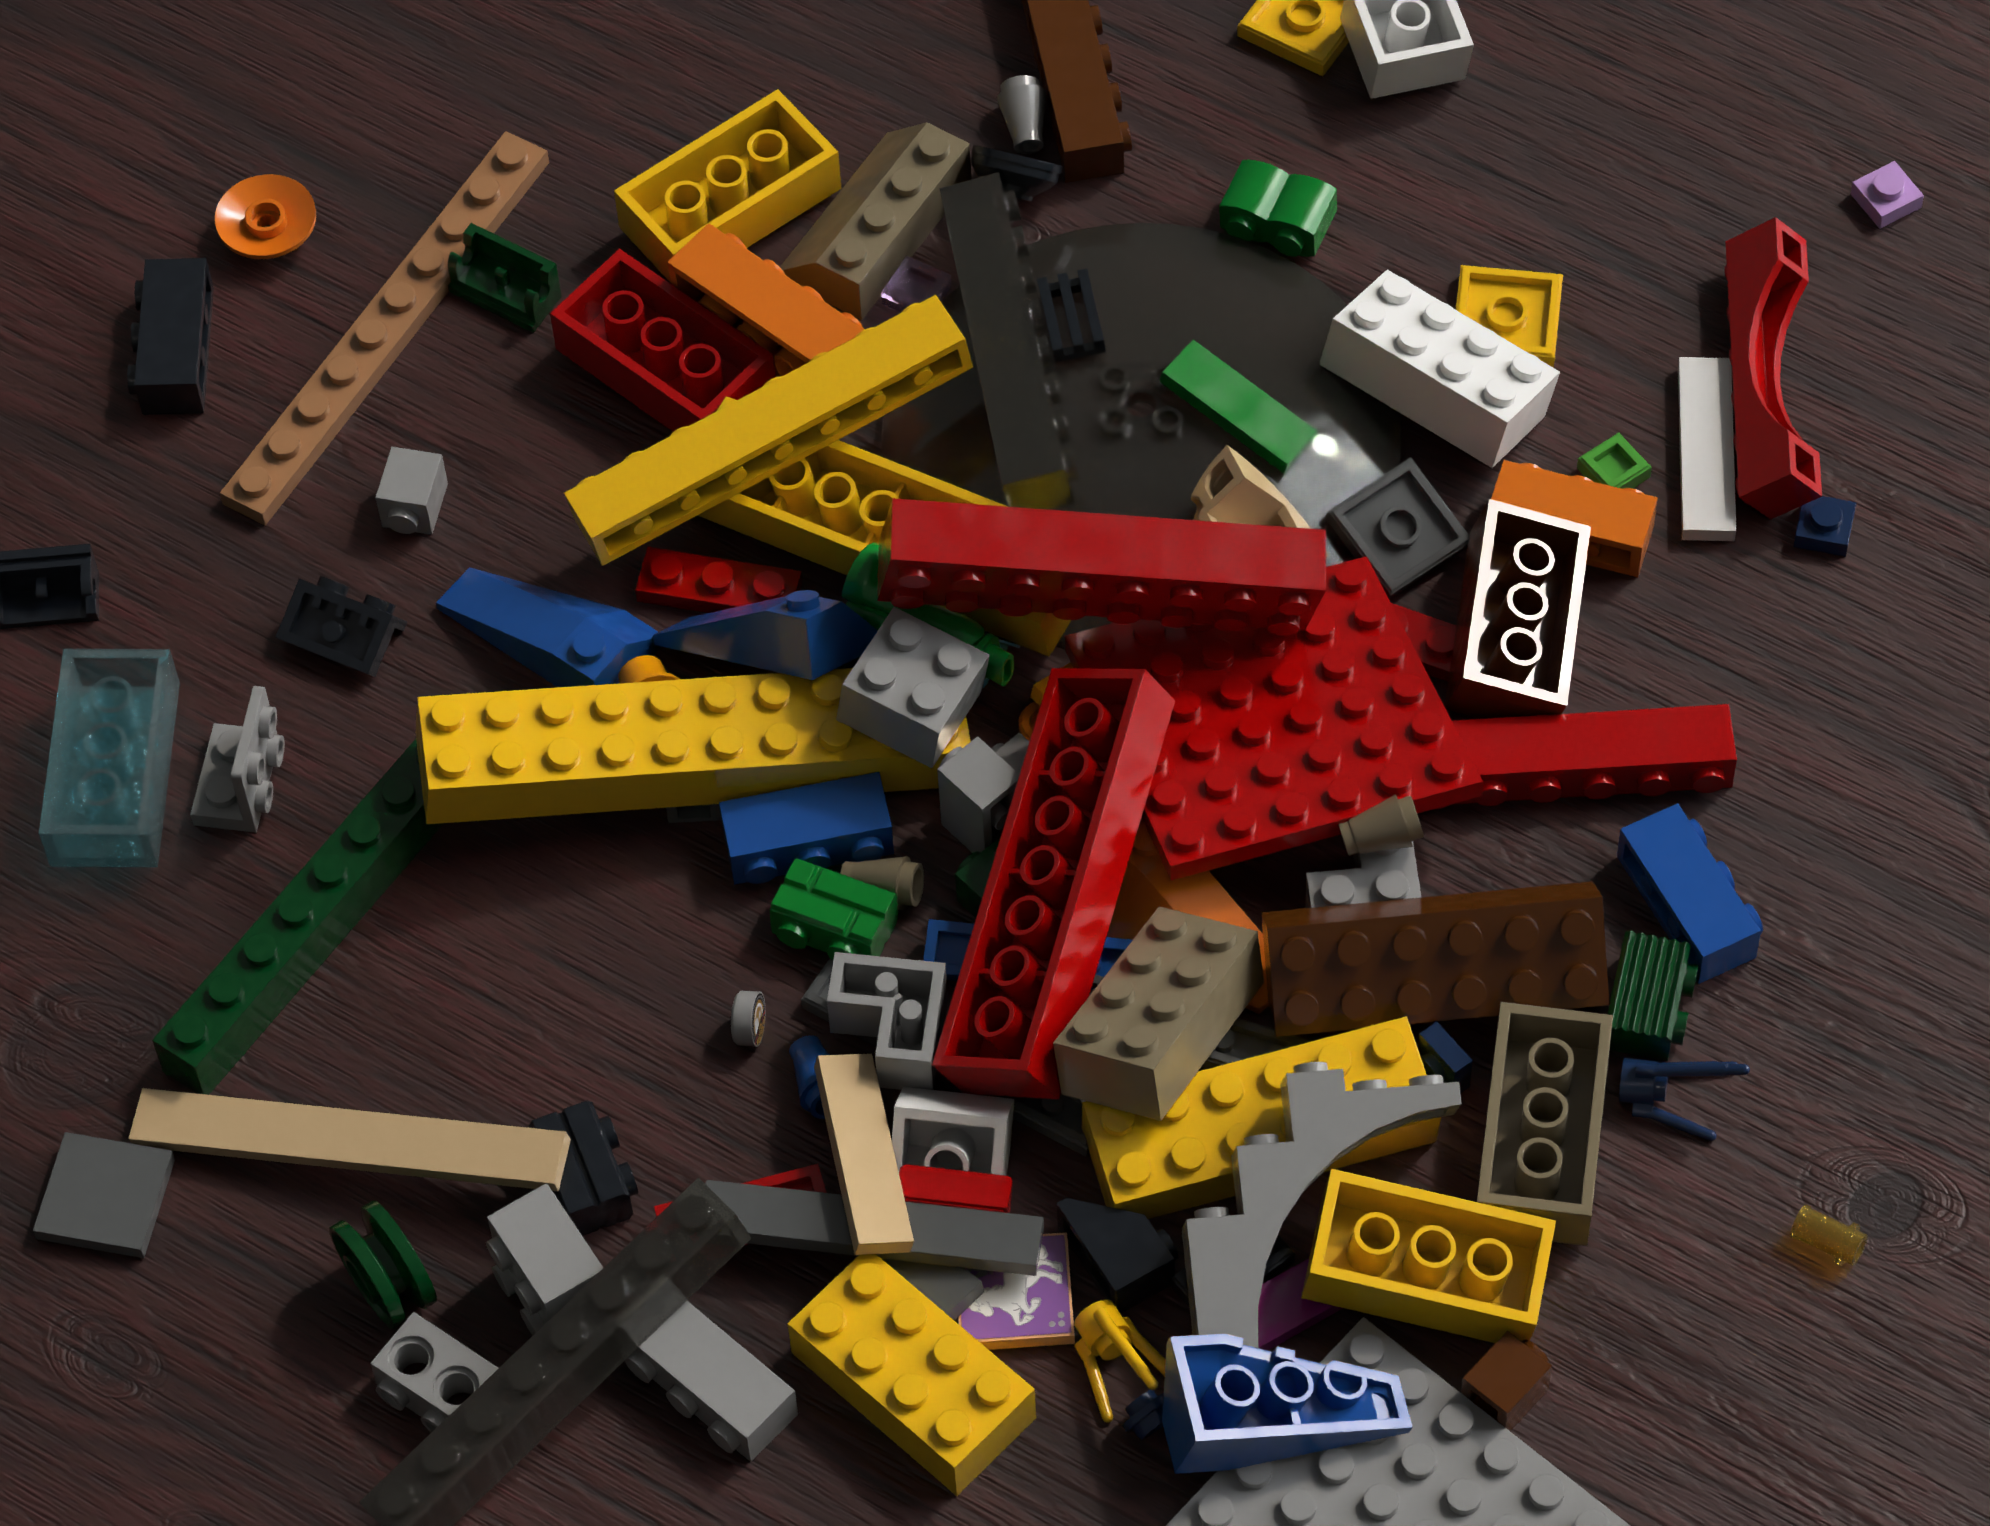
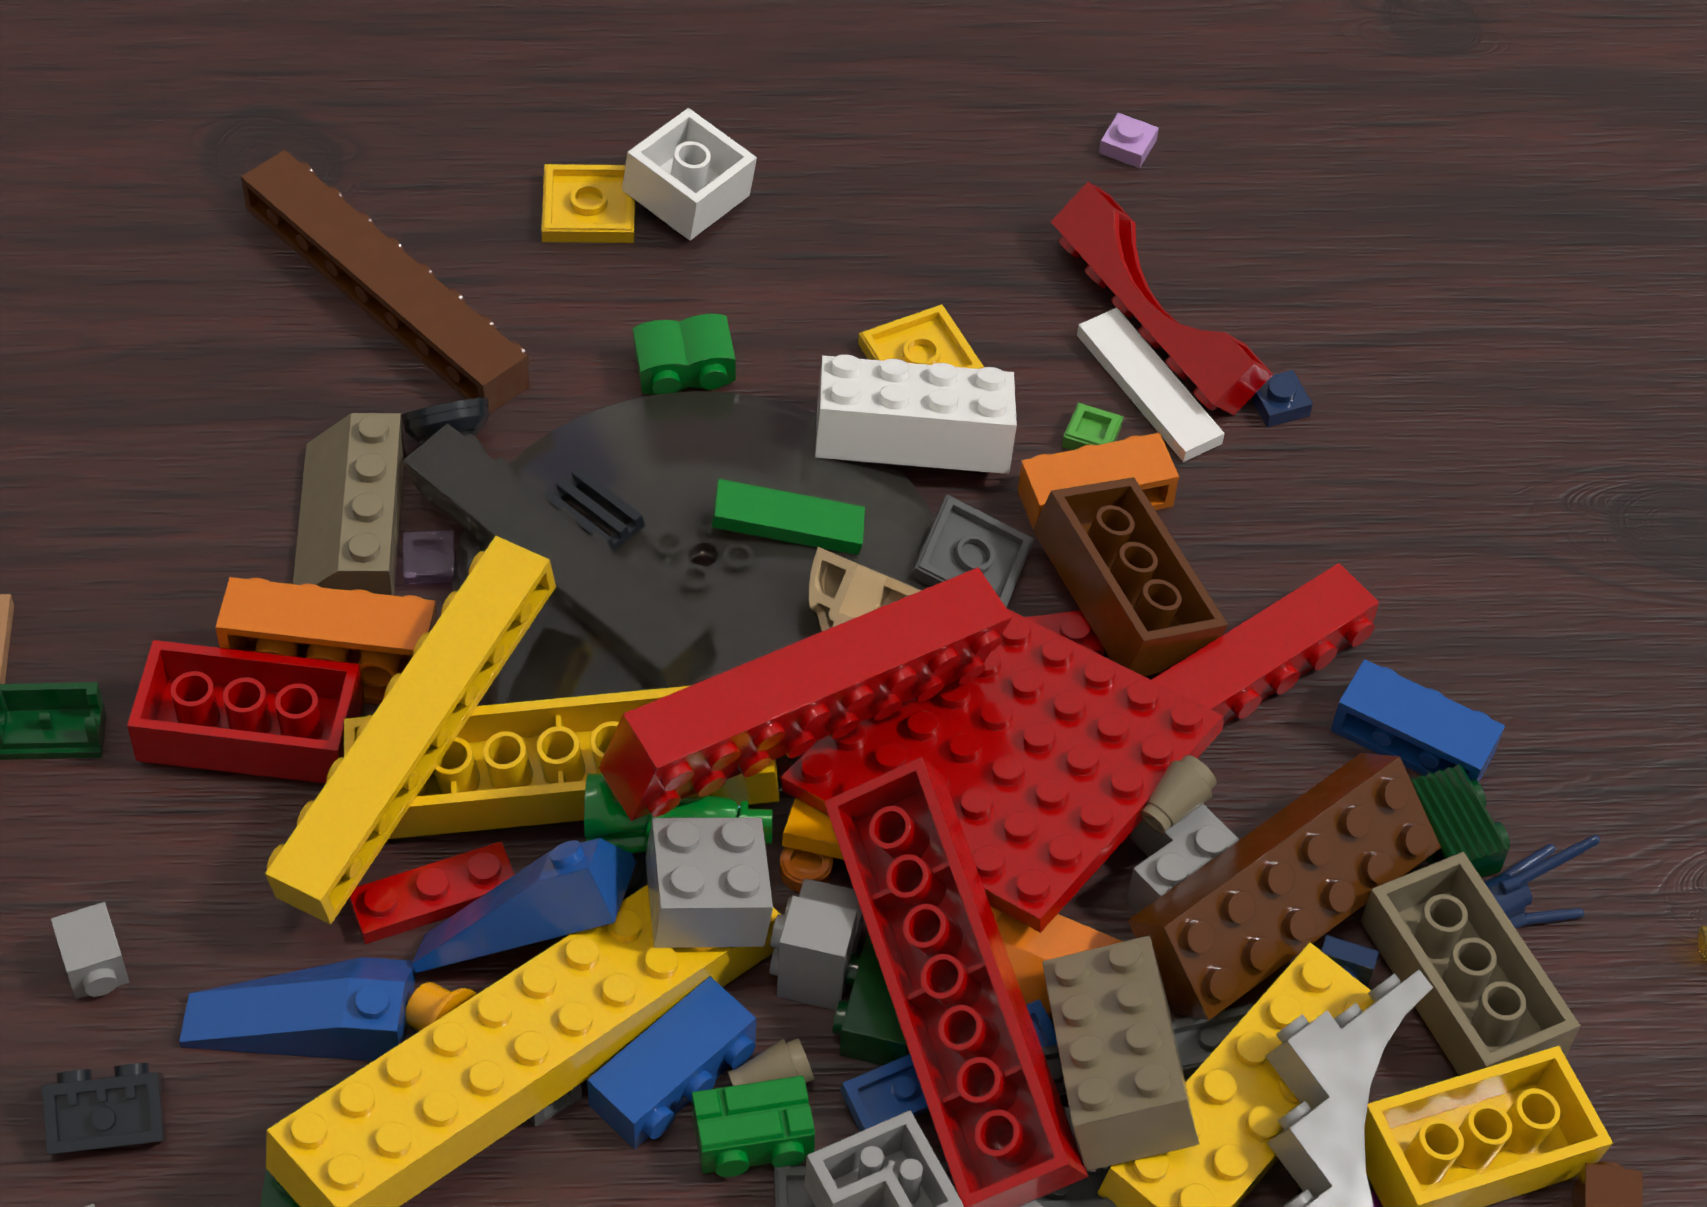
camera: 40 degrees left, 5 degrees down
(737, 177) = (213, 527): yellow brick -> none
(1023, 110) = (414, 372): light grey cone -> none

